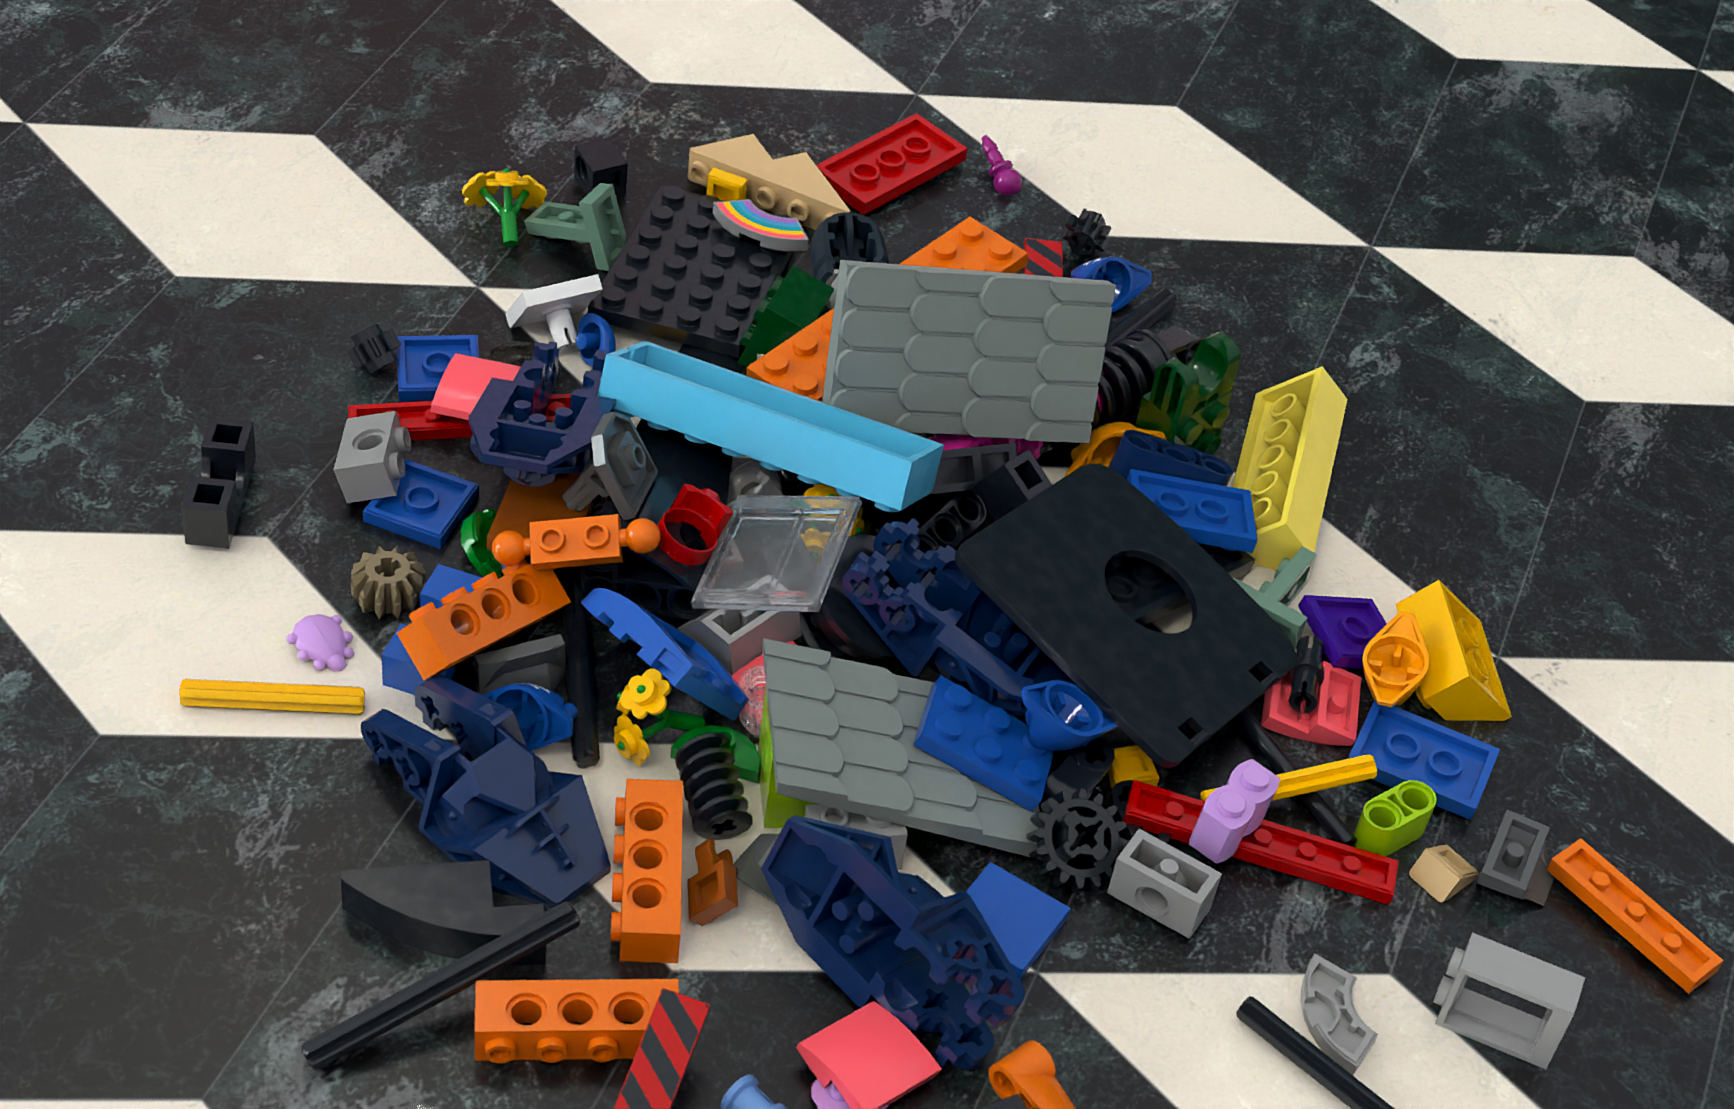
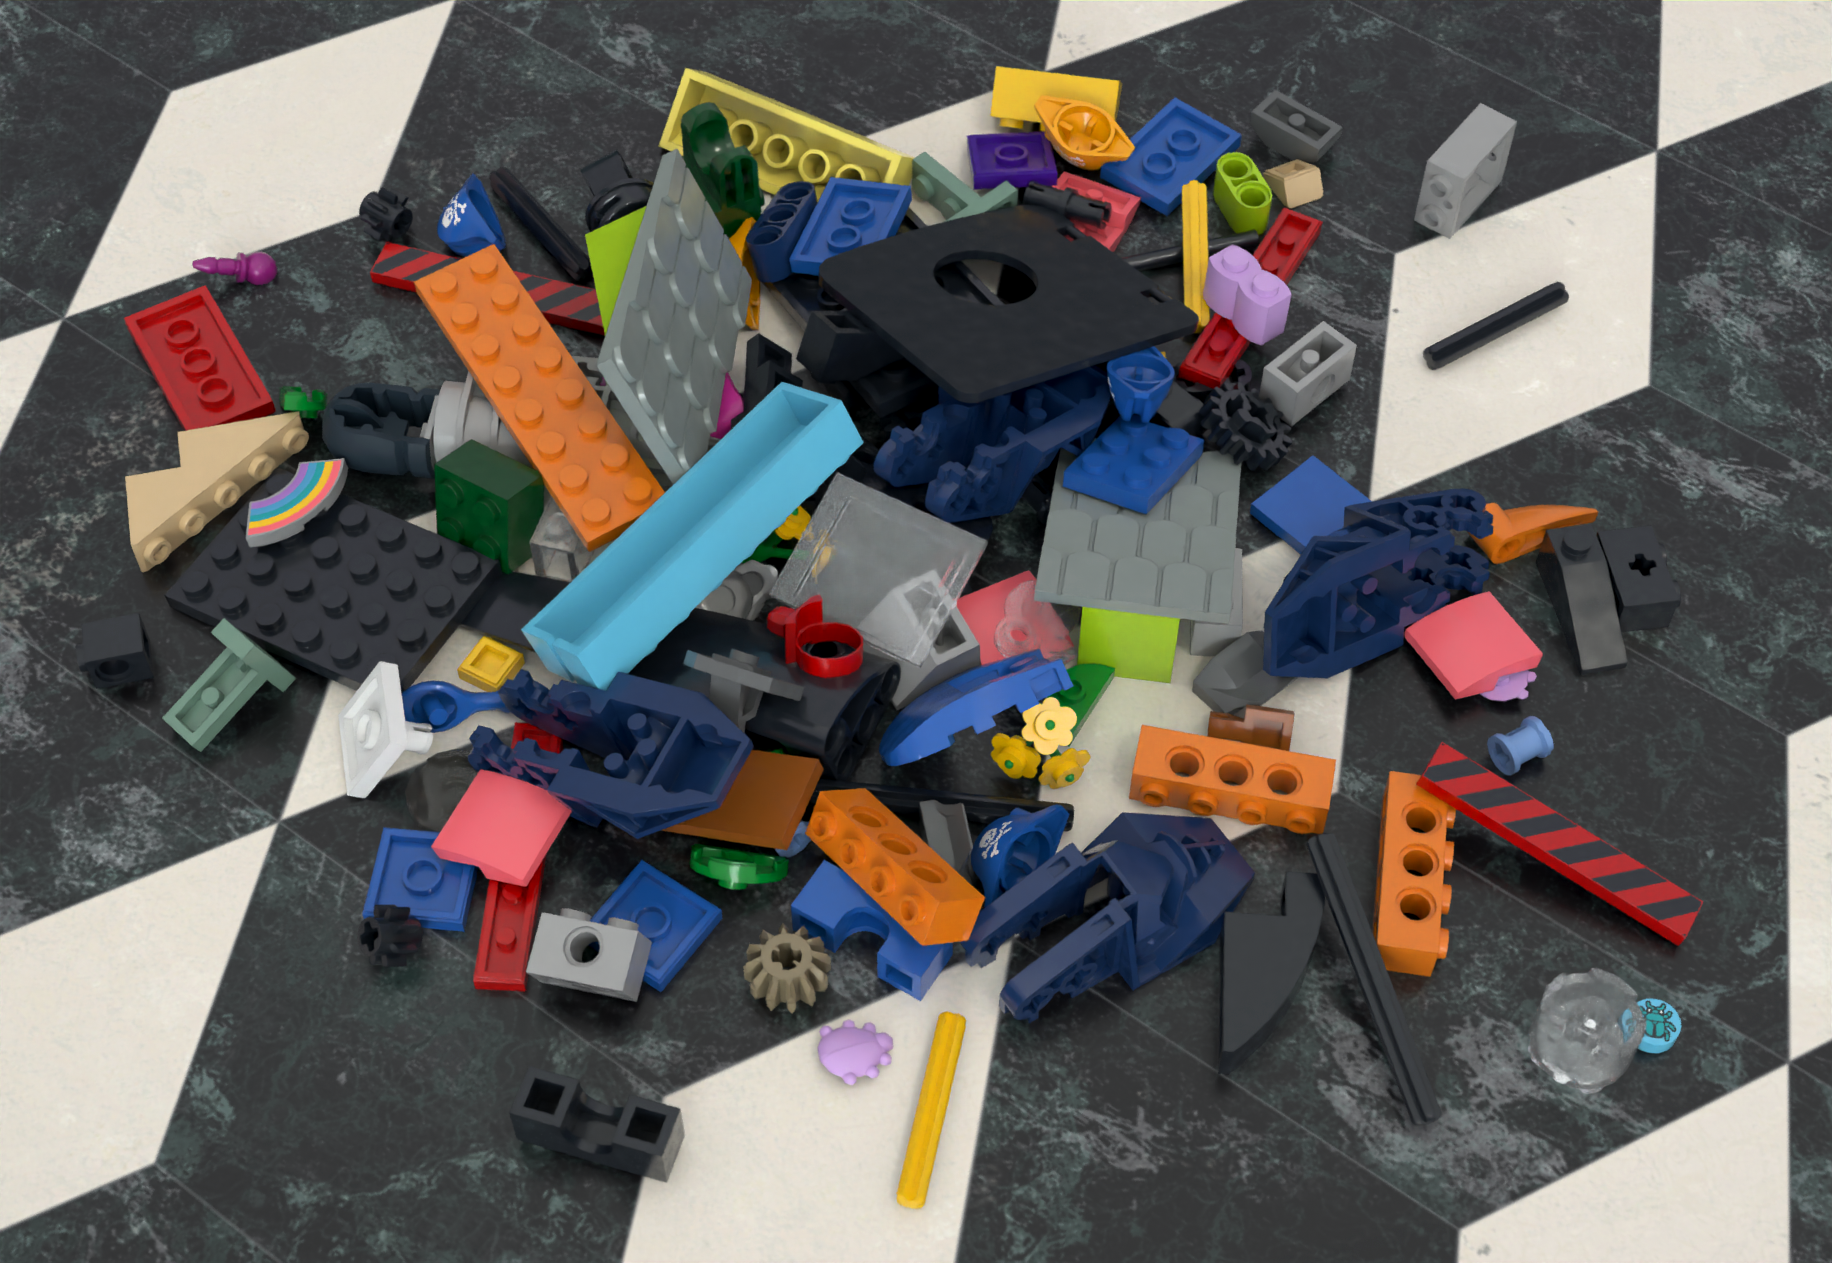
camera: 70 degrees left, 10 degrees up
(525, 189) = (144, 741): yellow plant -> none
(575, 542) = (832, 748): orange plate -> none
(713, 787) = (1142, 701): black piece -> none
(726, 185) = (200, 528): yellow tile -> none
(861, 205) = (295, 400): none -> green plate
(1332, 1016) = (1439, 302): light grey tile -> none
(1635, 915) = (1362, 69): orange plate -> none

